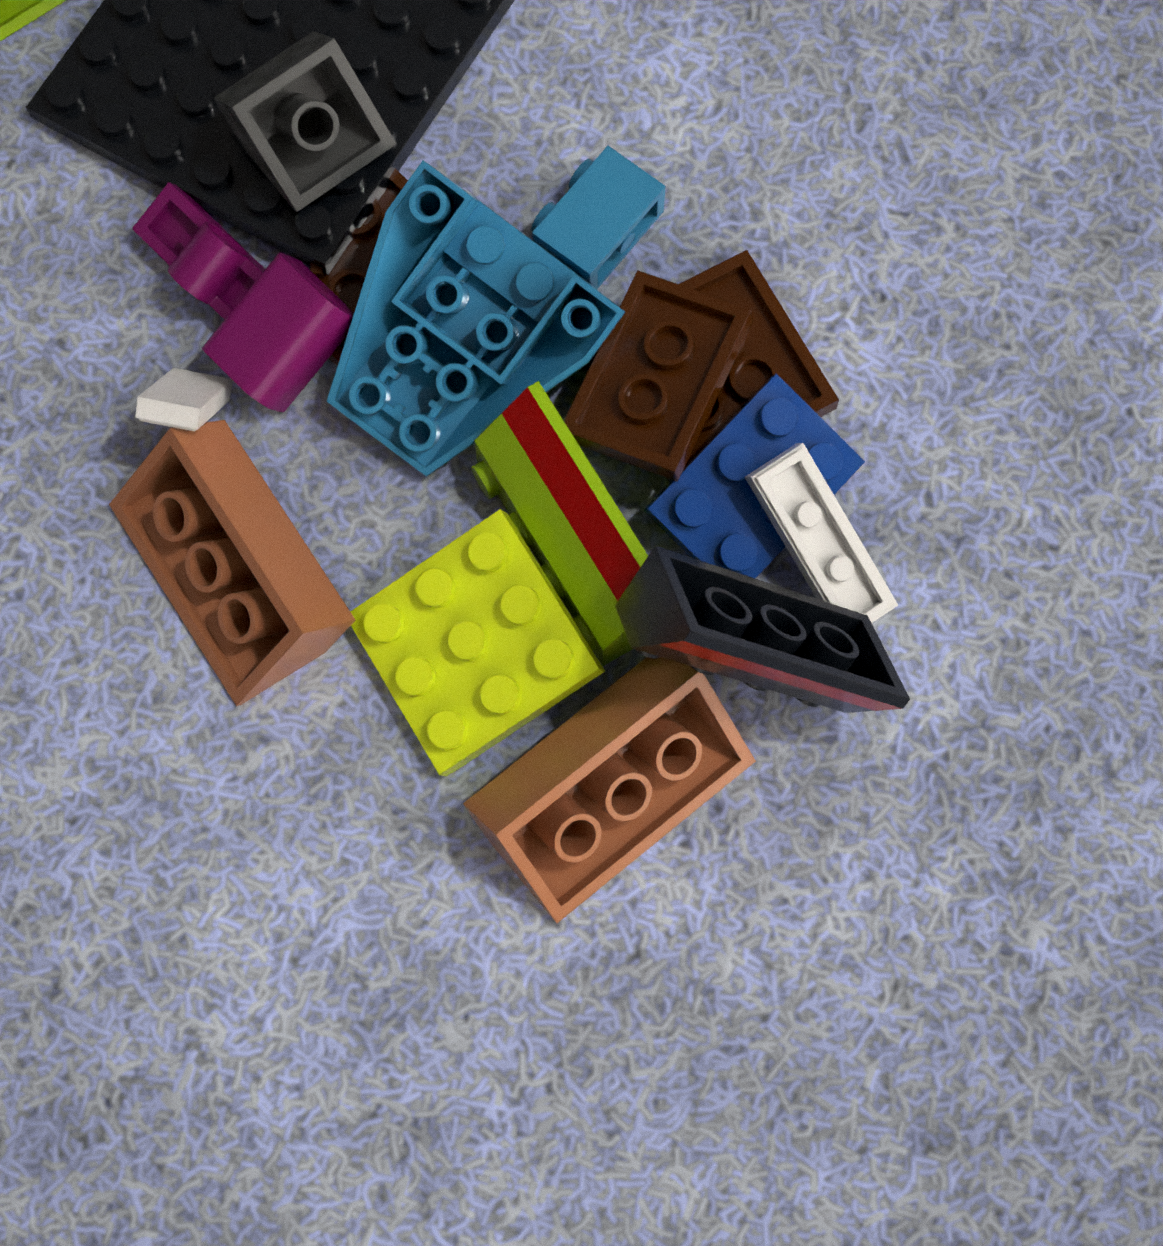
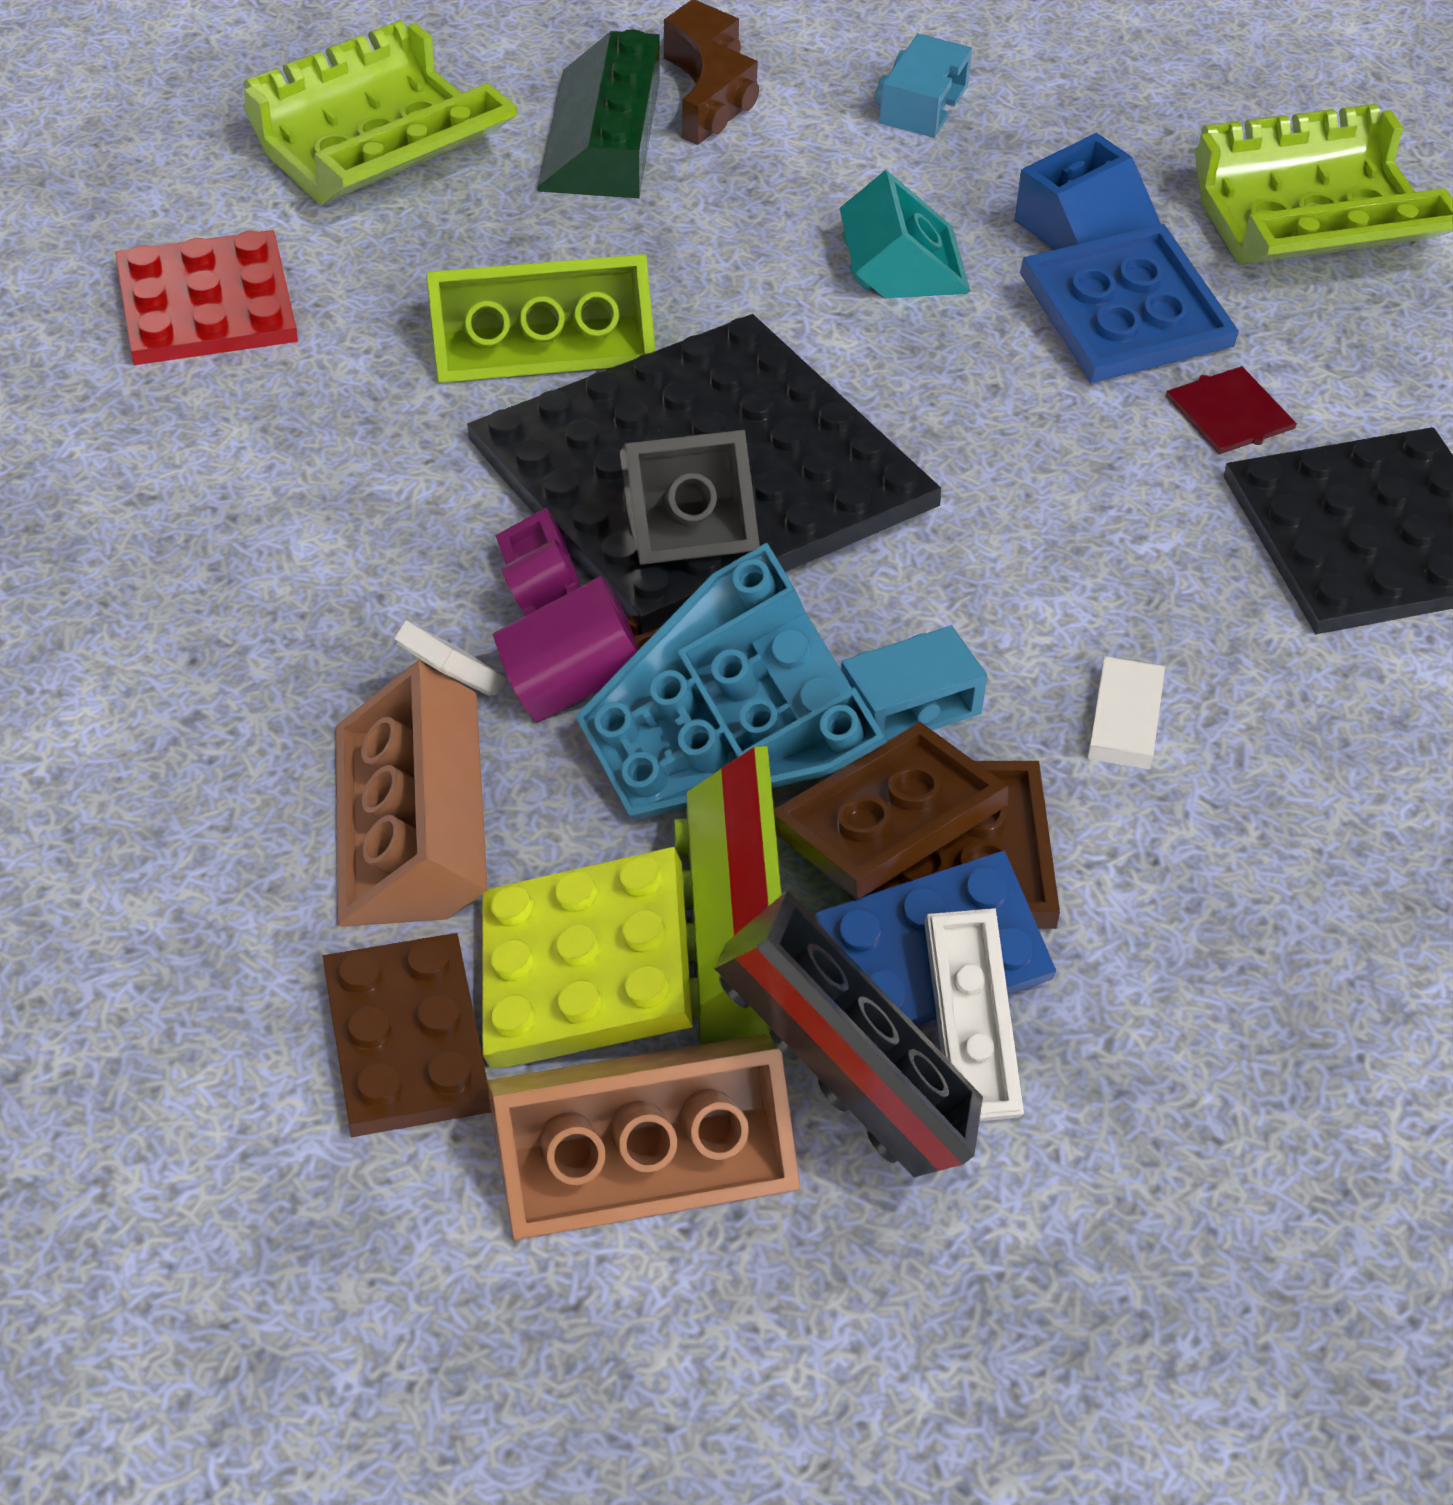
camera: 25 degrees right, 25 degrees down
(359, 783) = (405, 1035): none -> reddish brown plate
(789, 152) = (1127, 713): none -> white tile

